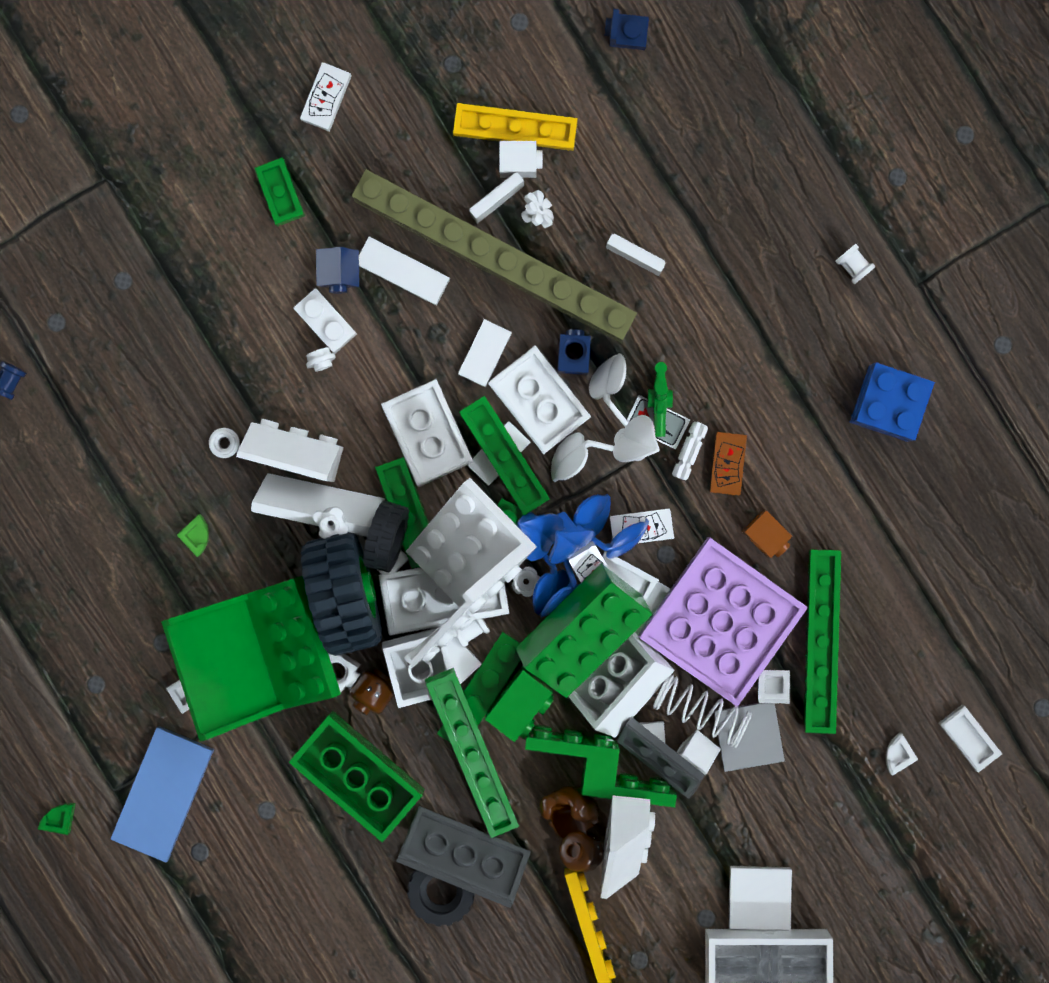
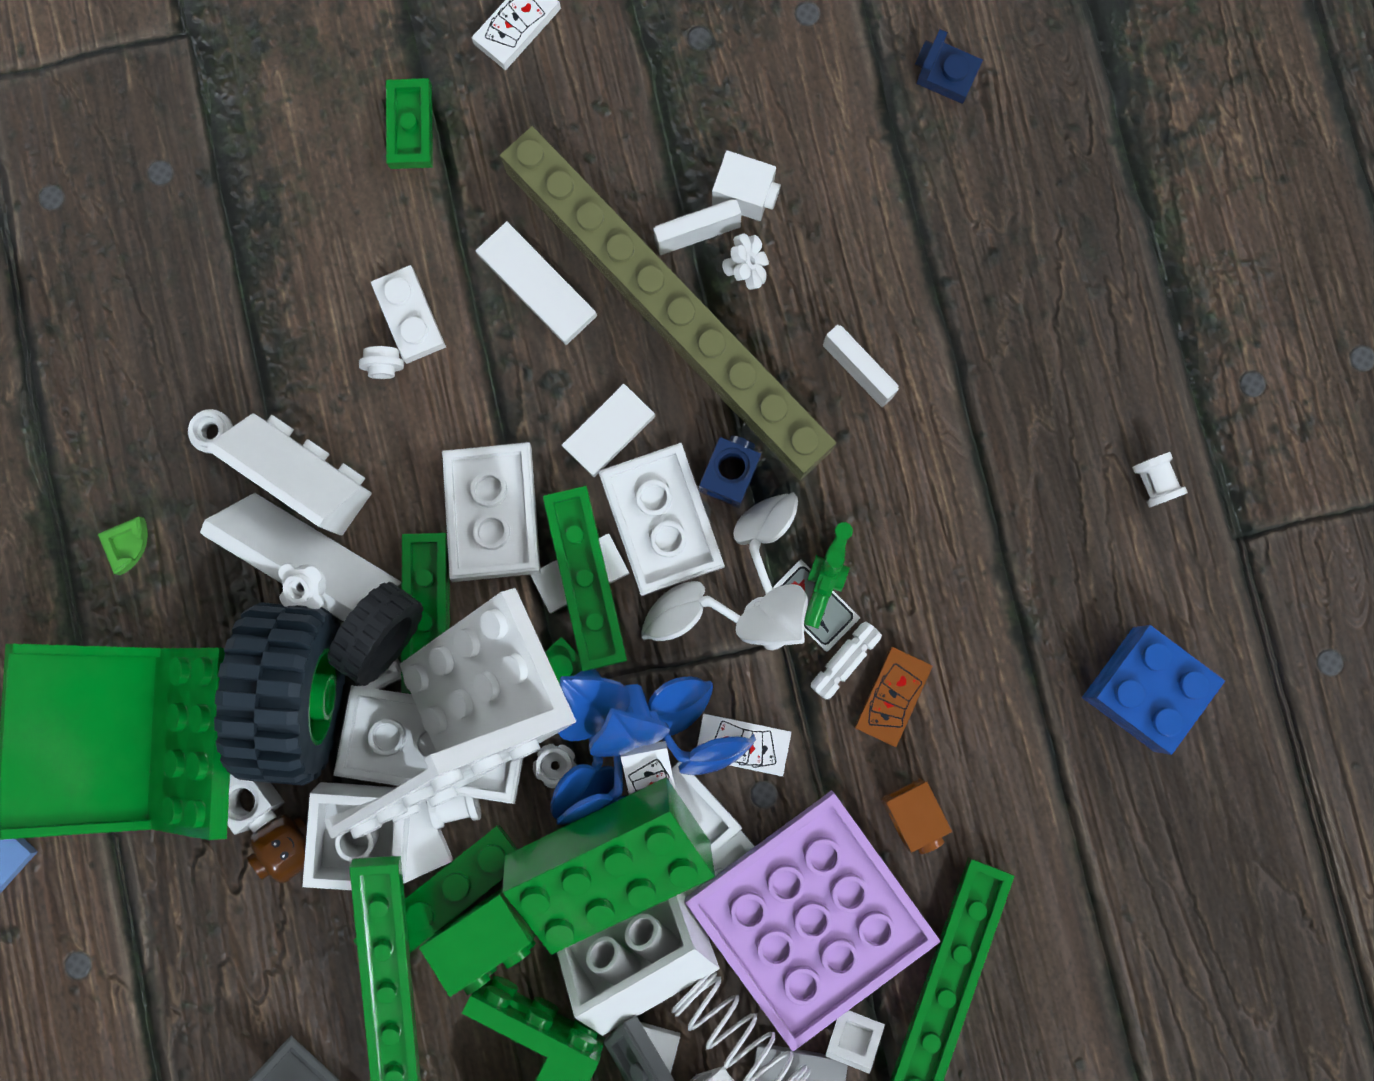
camera: 20 degrees right, 5 degrees down
(337, 269) = (448, 248): dark blue brick -> none
(357, 776) = (215, 964): green brick -> none
(515, 125) = (731, 129): yellow plate -> none

